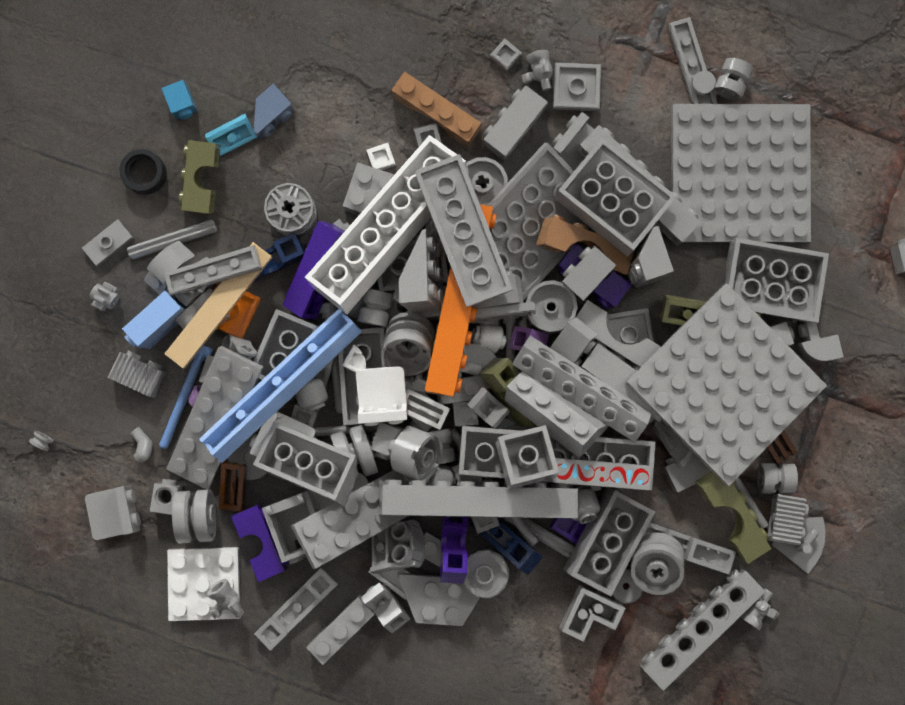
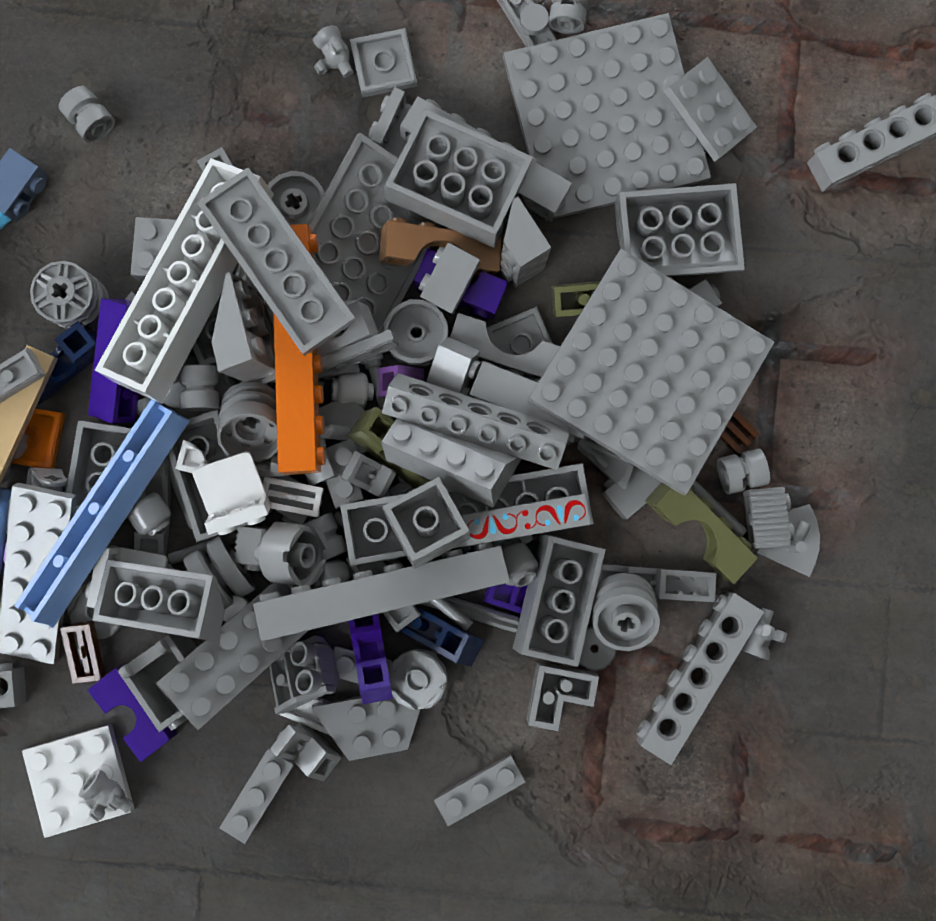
camera: 20 degrees left, 0 degrees up
(194, 516) = (40, 702): light grey wheel -> none
(295, 609) = (197, 782): light grey slope -> none
(336, 68) = (85, 111): none -> light grey wheel
(381, 157) = (167, 204): white tile -> none
(426, 101) = (200, 122): medium nougat arch -> none
(505, 54) = (288, 46): light grey tile -> none
(509, 671) = (479, 790): none -> light grey plate
(514, 122) = (318, 123): light grey brick -> none
(817, 348) = (750, 303): light grey brick -> none
(824, 188) = (710, 109): none -> light grey plate

